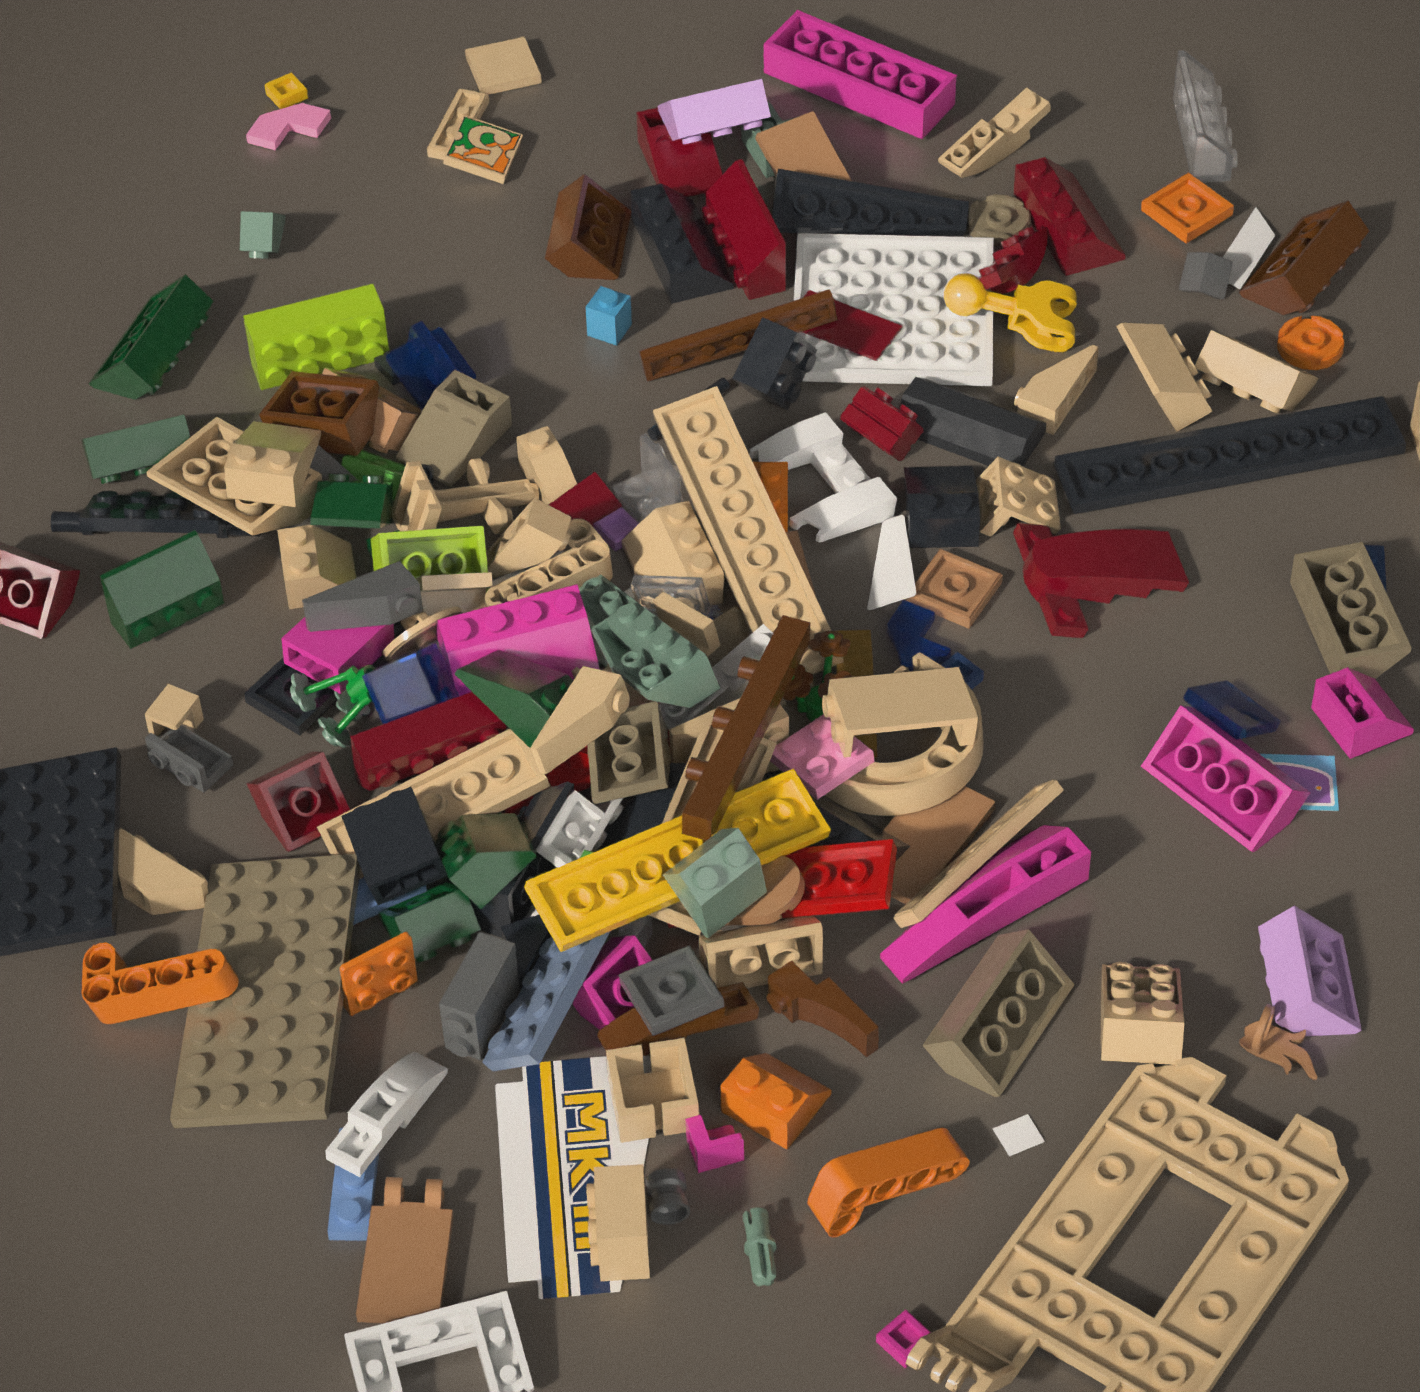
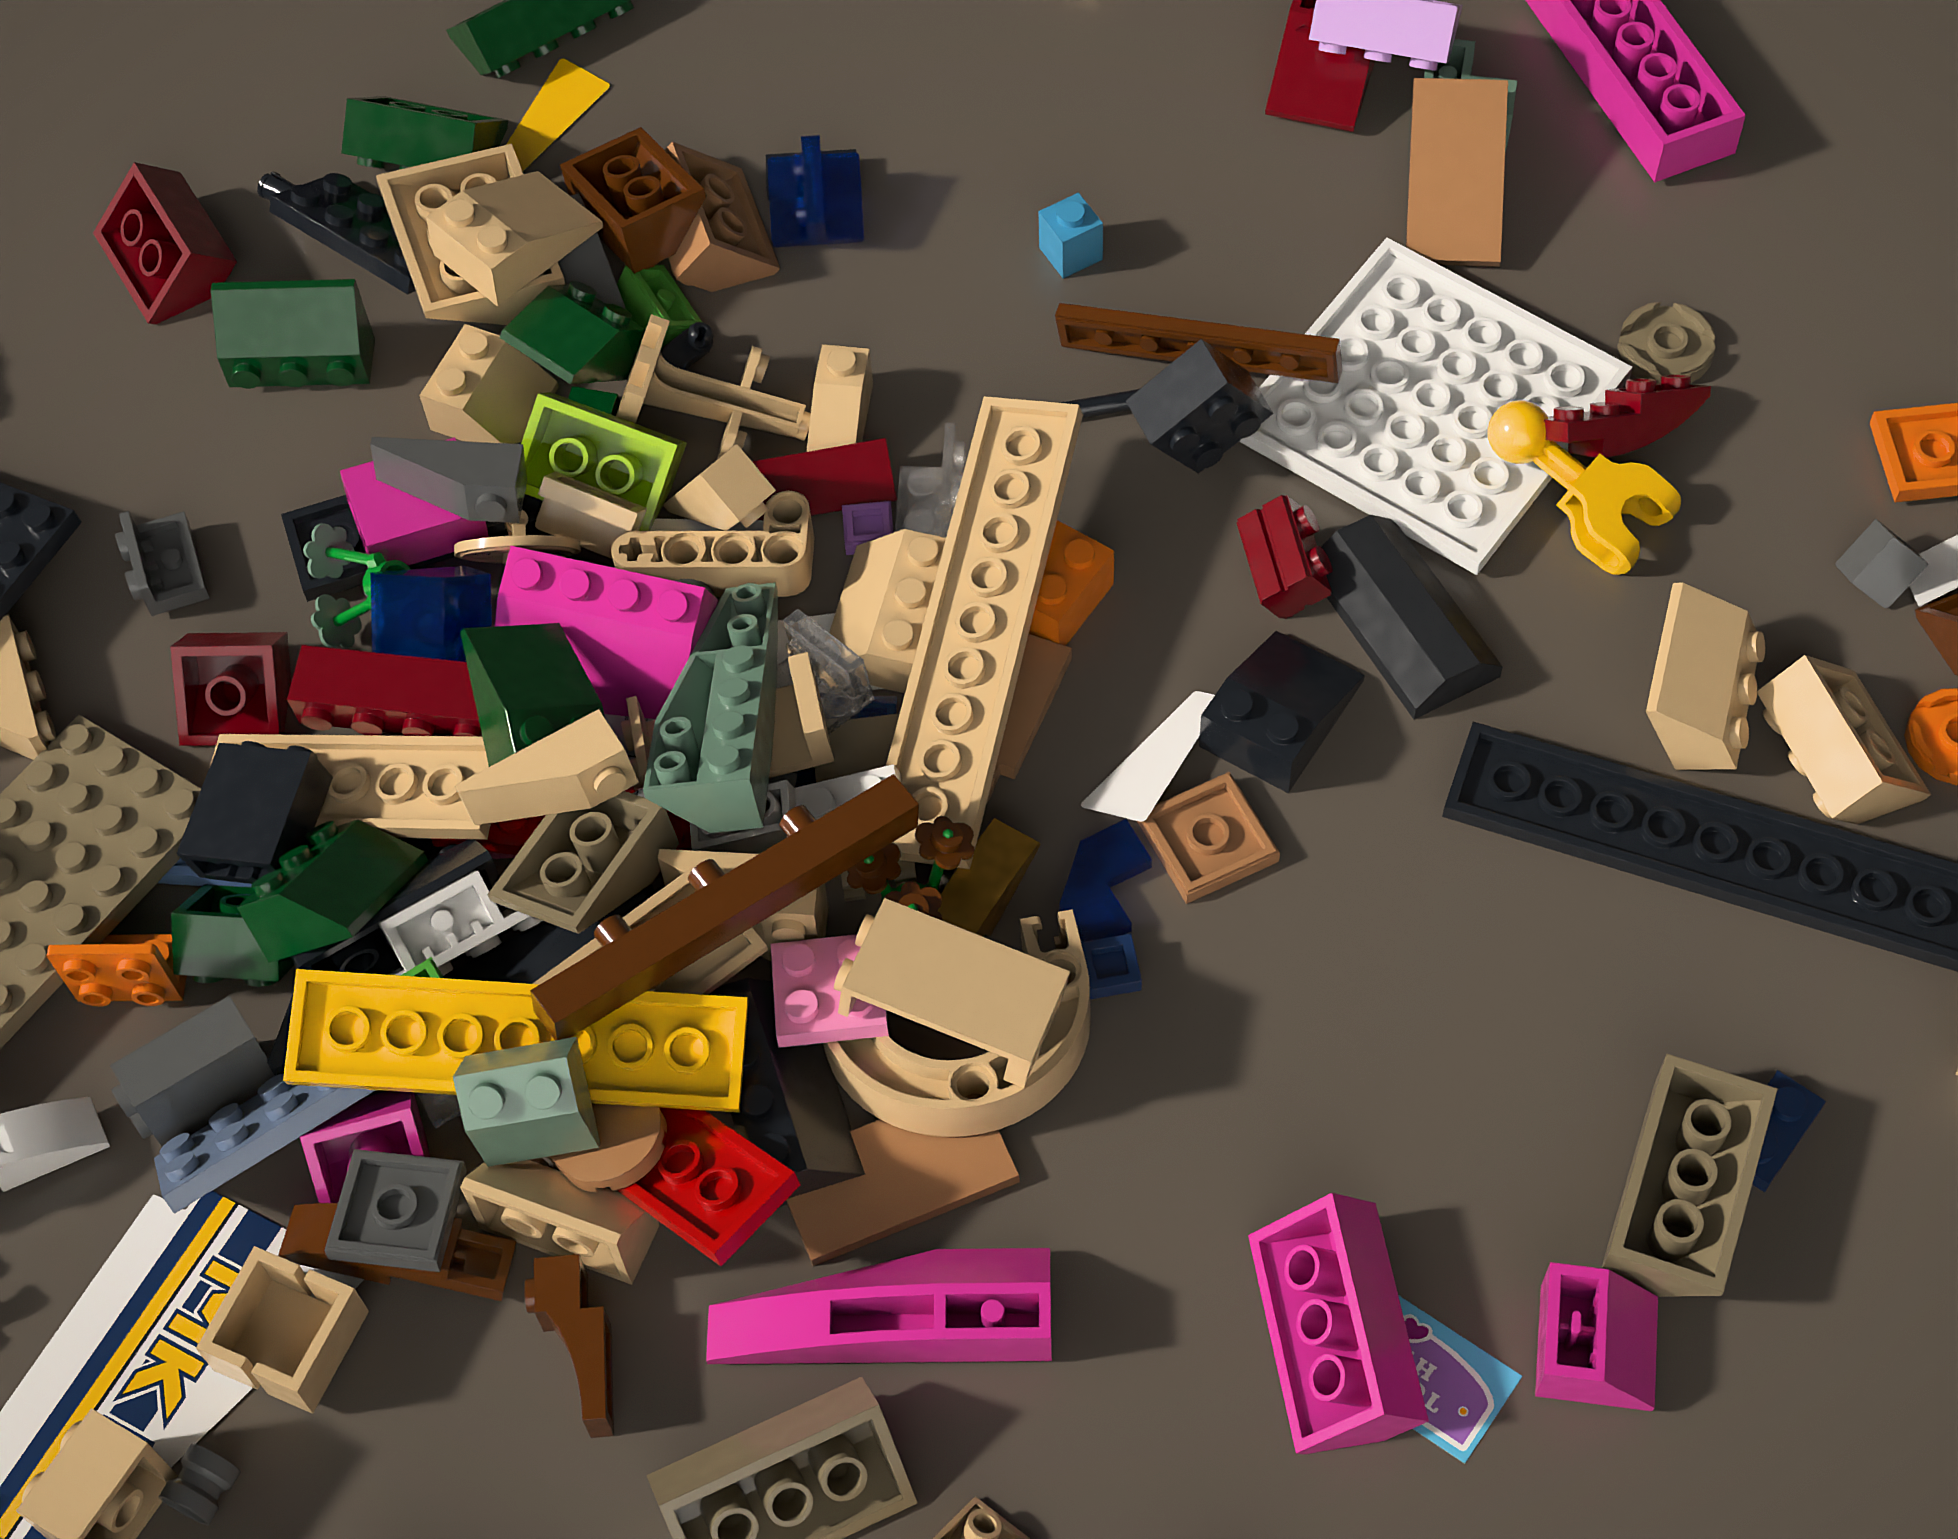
camera: 35 degrees right, 10 degrees up
(173, 709) = (189, 490): tan panel -> none
(204, 393) = (556, 107): none -> yellow sticker
(316, 334) = (709, 94): lime brick -> none
(456, 426) = (776, 295): dark tan slope -> none
(588, 232) = (1137, 111): reddish brown slope -> none
(678, 243) = (1235, 179): black slope -> none
(713, 1147) = (310, 1444): dark pink panel -> none
(746, 233) = (1315, 208): dark red slope -> none
(772, 1098) = (430, 1424): orange slope -> none
(847, 207) = (1463, 229): black wing -> none
(857, 331) = (1358, 409): dark red piece -> none
(858, 498) = (1186, 649): white wedge -> none
(977, 853) = (932, 1240): tan tile -> none
(997, 139) = (1738, 230): tan slope -> none
(1015, 492) = (1382, 756): tan bracket -> none
(1057, 388) = (1551, 626): tan slope -> none
(1074, 227) = (1758, 384): dark red slope -> none
(1094, 569) = (1401, 915): dark red slope -> none
(1231, 709) = (1418, 1230): clear blue tile -> none

